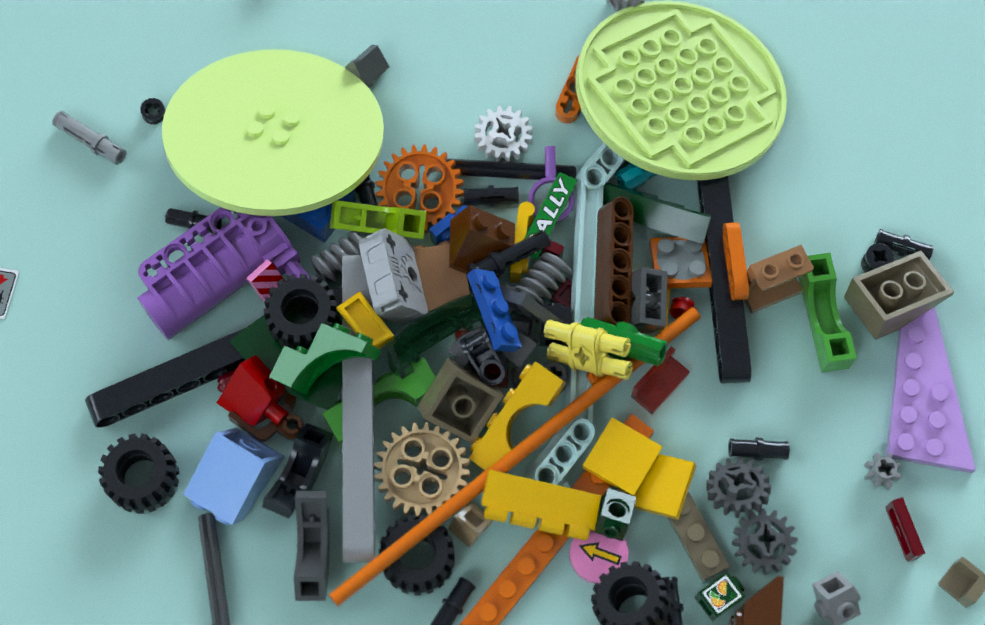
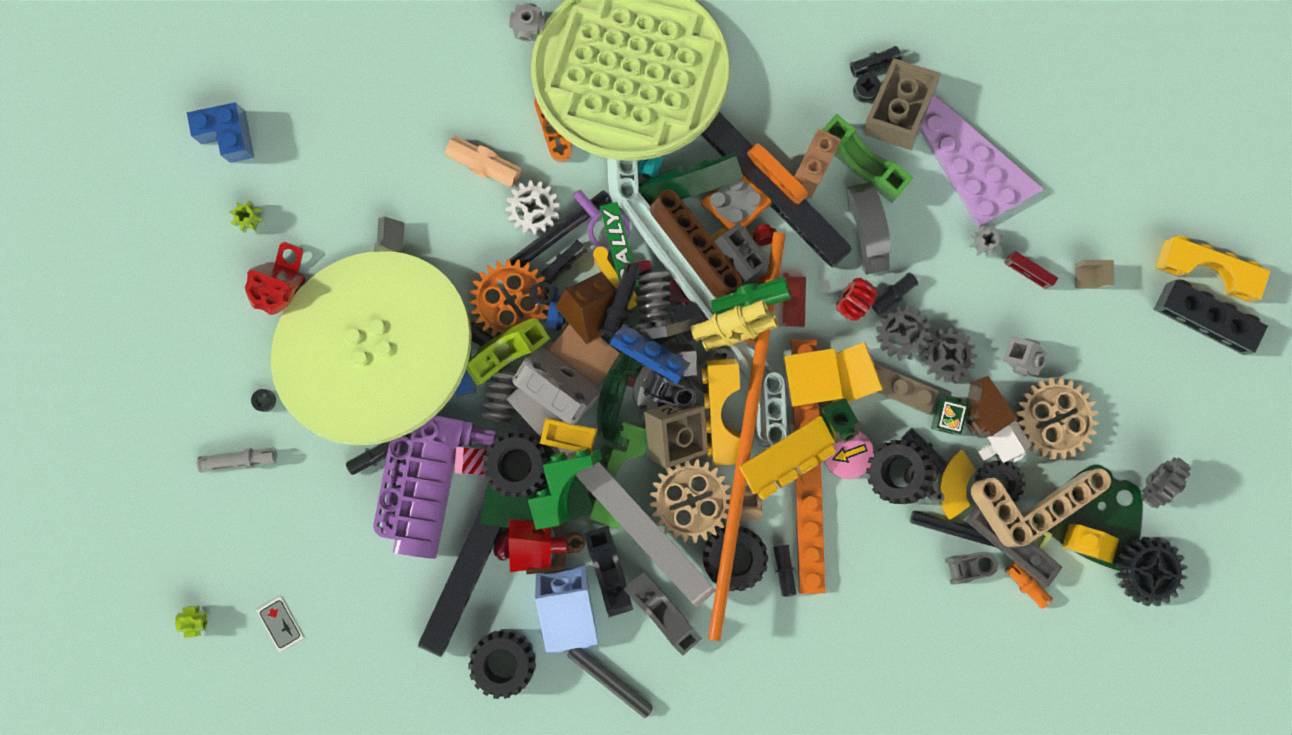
camera: 40 degrees left, 15 degrees up
(243, 31) = (275, 284): none -> red piece
(455, 206) = (549, 295): none -> black bush
(495, 69) = (483, 161): none -> light nougat piece
(718, 422) = (856, 299): none -> red gear
(781, 375) = (872, 227): none -> dark grey arch

